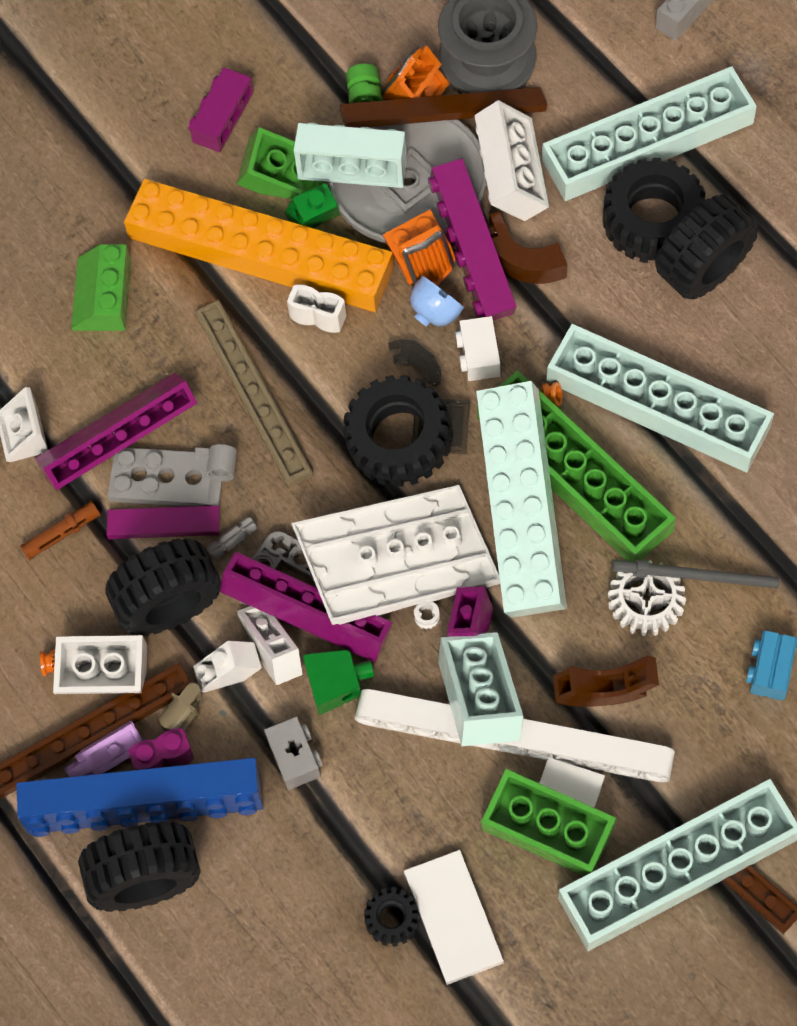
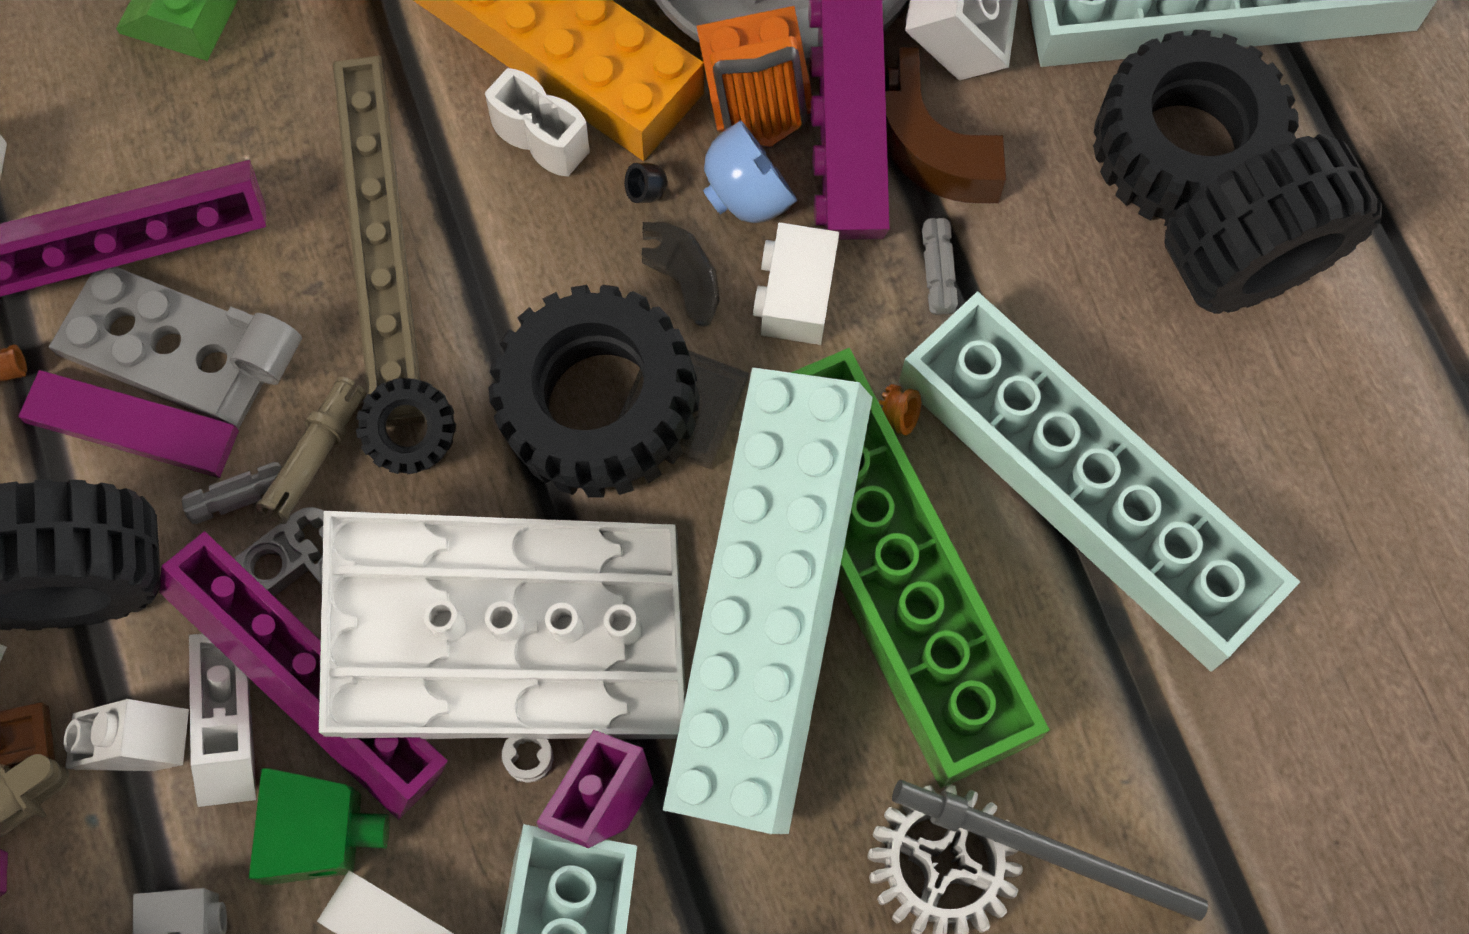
camera: 10 degrees right, 5 degrees up
(265, 494) = (323, 431): none -> dark tan pin
(324, 472) = (374, 433): none -> black tyre
(381, 322) = (645, 182): none -> black hinge
(547, 318) = (939, 266): none -> light grey axle

